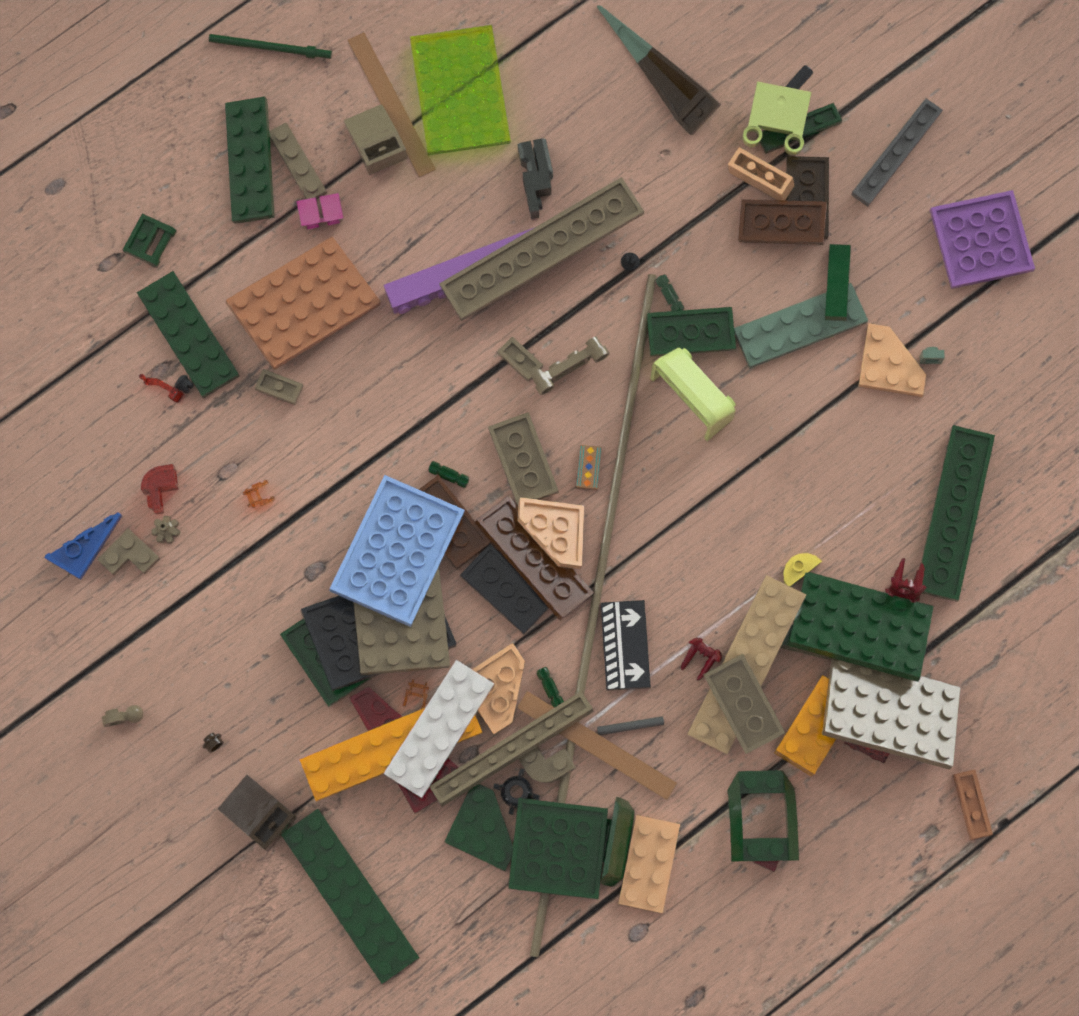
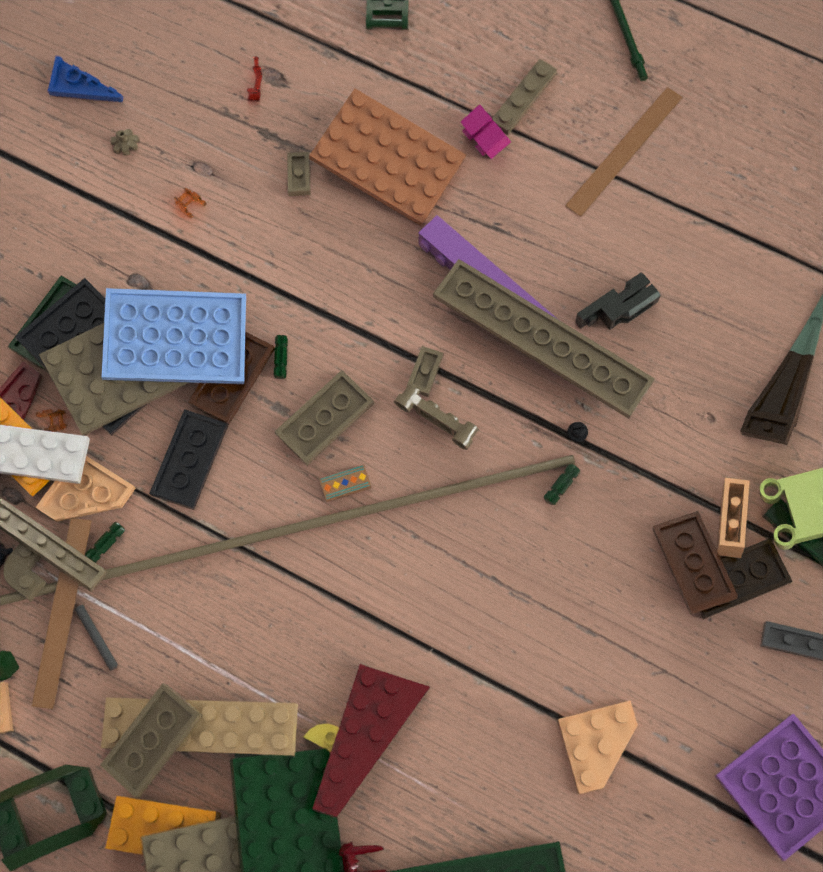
camera: 70 degrees right, 5 degrees down
(128, 548) = (93, 121): dark tan plate -> none
(156, 481) = (162, 113): clear red brick -> none
(184, 384) = (265, 96): black piece -> none
(188, 334) = (315, 80): dark green plate -> none
(249, 160) = (504, 56): dark green plate -> none
(376, 139) = (579, 149): dark tan slope -> none
(460, 90) = (670, 201): clear neon green plate -> none
(555, 528) = (264, 476): light nougat plate -> none
(556, 586) = (227, 470): plate -> none
(625, 645) = (176, 597): black tile -> none
(691, 329) = (531, 521): dark green plate -> none
(695, 390) = (461, 546): yellowish green windscreen -> none
(698, 645) = (195, 666): dark red piece -> none
(795, 328) = (594, 631): sand green plate -> none
(799, 527) = (370, 722): none -> dark red wing
(838, 282) = (657, 647): dark green tile -> none
(932, 355) = (627, 785): sand green plate -> none

